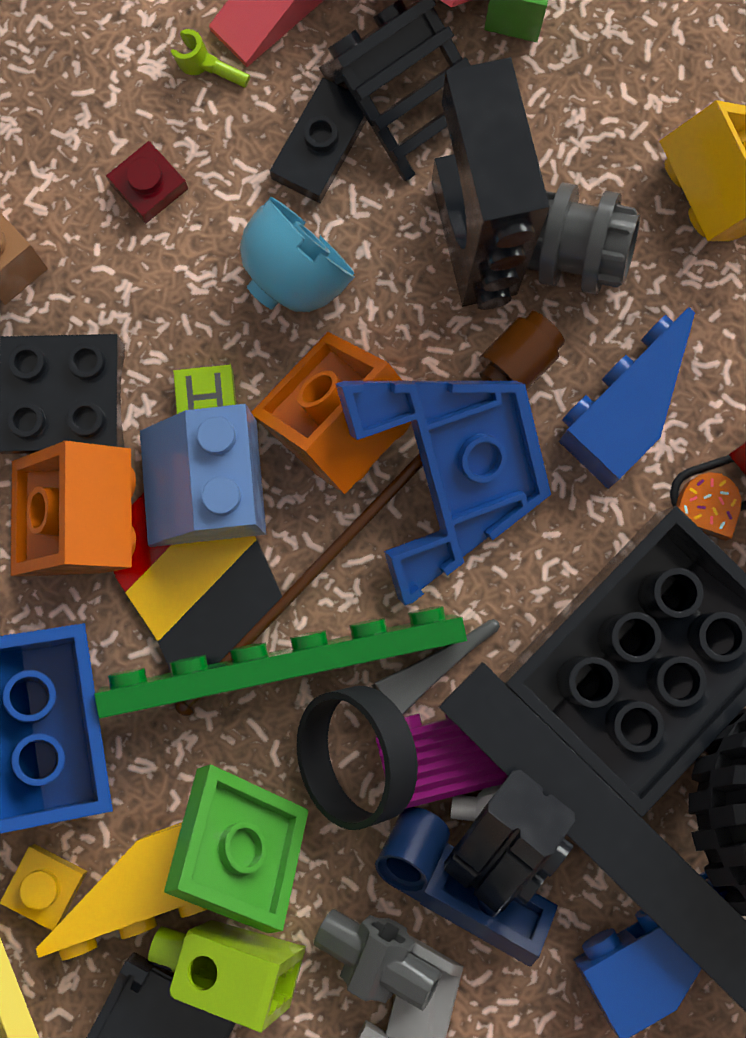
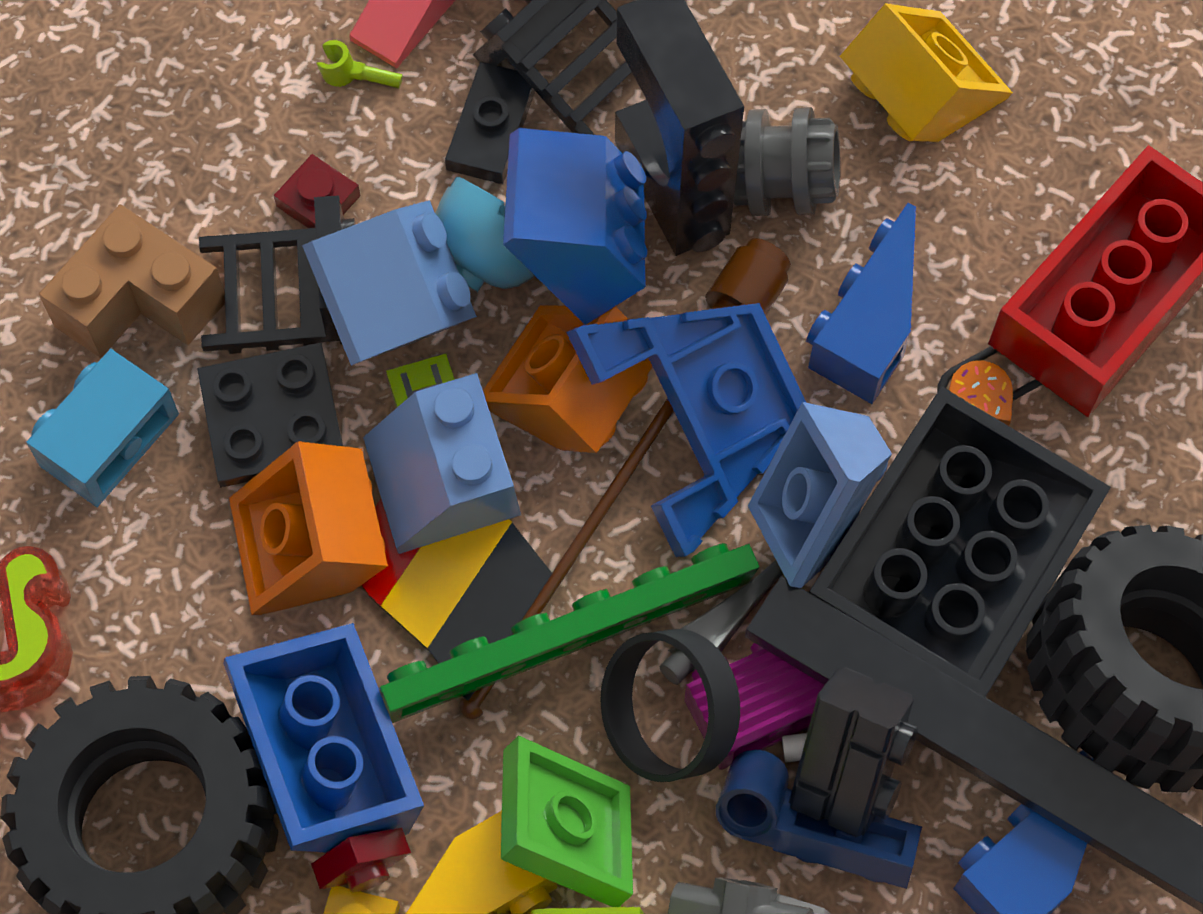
camera: 10 degrees left, 15 degrees down
(55, 841) = (361, 860): none -> dark red plate
(135, 273) = (314, 315): none -> black plate
(183, 294) = (389, 281): none -> medium blue slope
(370, 265) = (577, 217): none -> blue slope
(537, 582) = (817, 487): none -> medium blue slope

